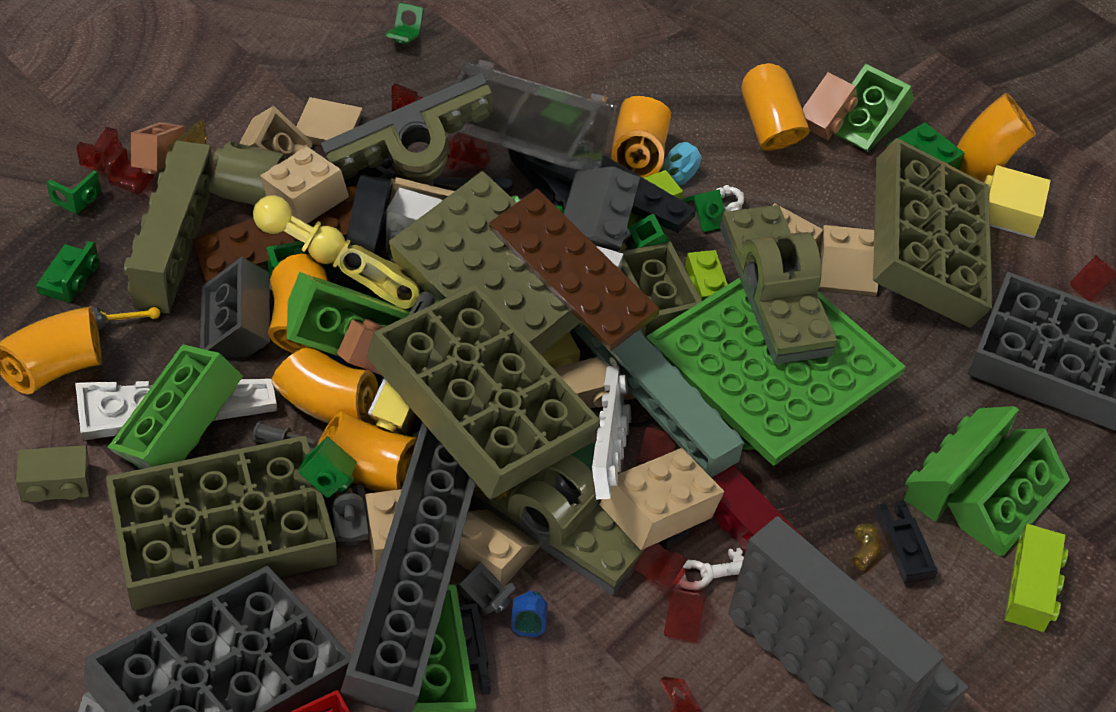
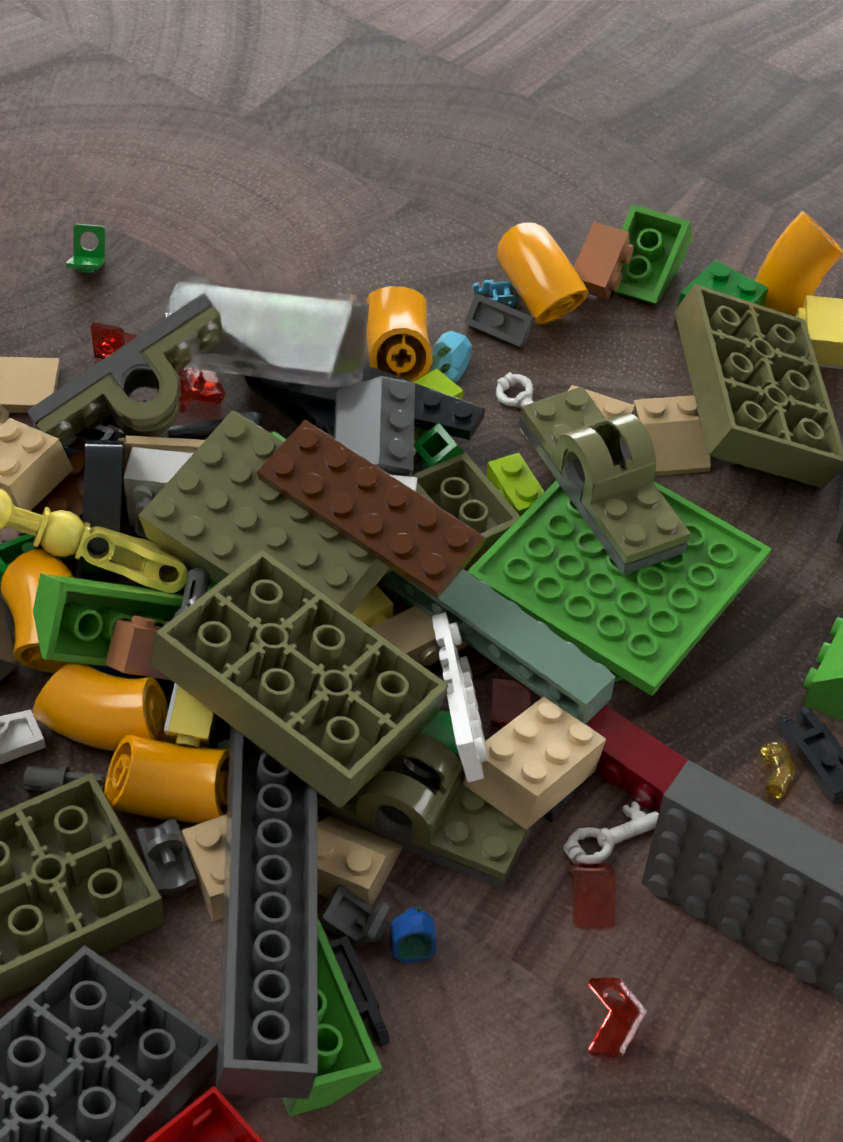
camera: 10 degrees left, 0 degrees up
(328, 468) = (131, 808): green brick -> none
(661, 566) = (553, 843): clear red bracket -> none
(709, 209) = (498, 406): green bracket -> none
(730, 140) = (499, 320): none -> dark grey plate
(738, 120) = (497, 288): none -> medium azure piece

